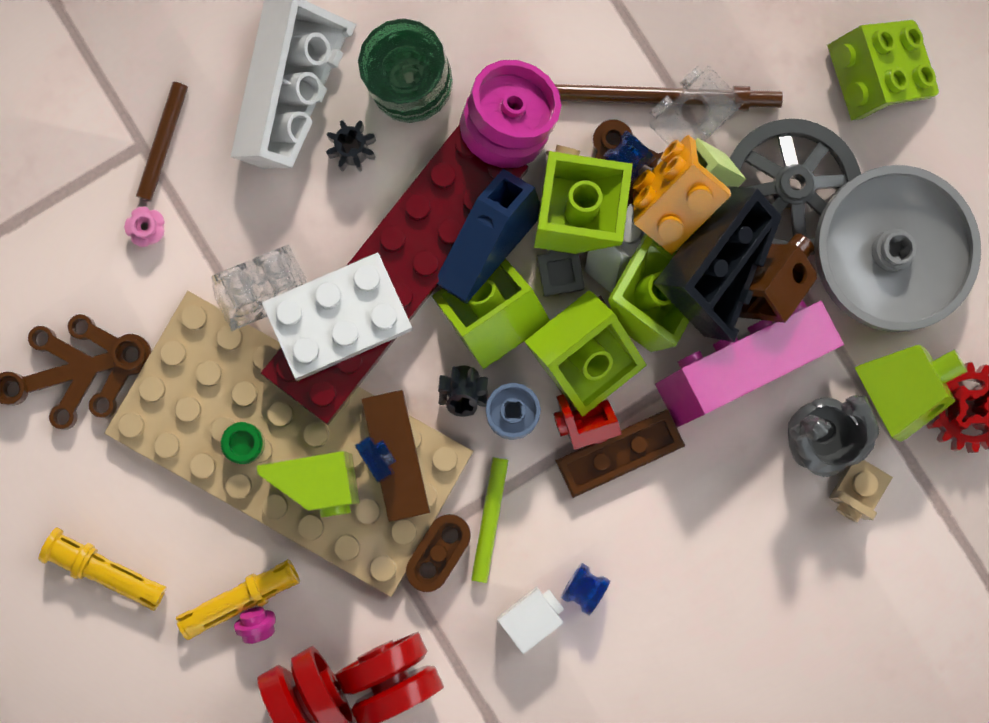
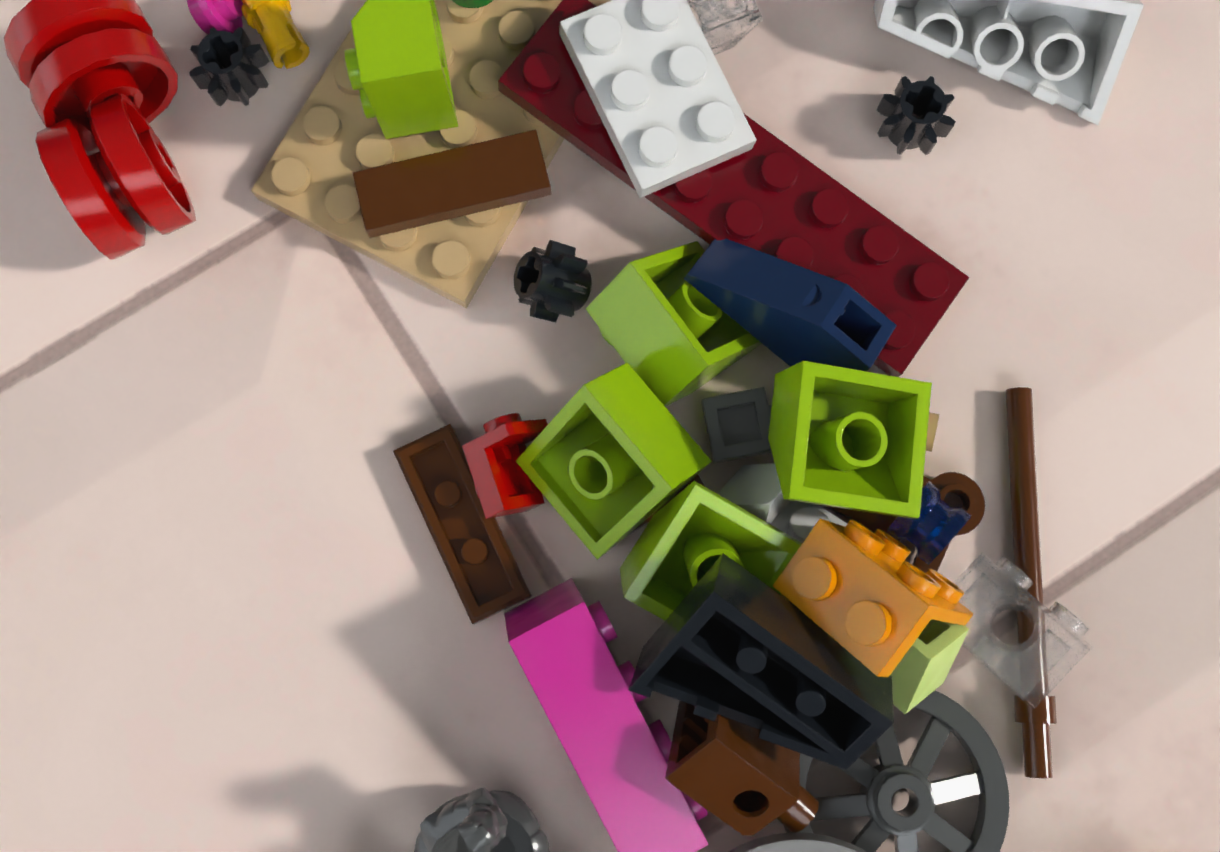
camera: 85 degrees right, 5 degrees down
(298, 625) = (229, 66): none -> black gear
(377, 458) = (441, 140): clear blue plate -> none
(403, 48) = (1040, 179): clear green wheel -> none
(438, 552) = (316, 257): reddish brown plate -> none
(489, 520) = (362, 331): lime bar -> none
(510, 113) = (986, 333): dark pink wheel -> none
(512, 411) = (520, 351): sand blue wheel -> none
(531, 618) = (208, 389): white brick -> none
(585, 589) = (251, 470): clear blue wheel -> none

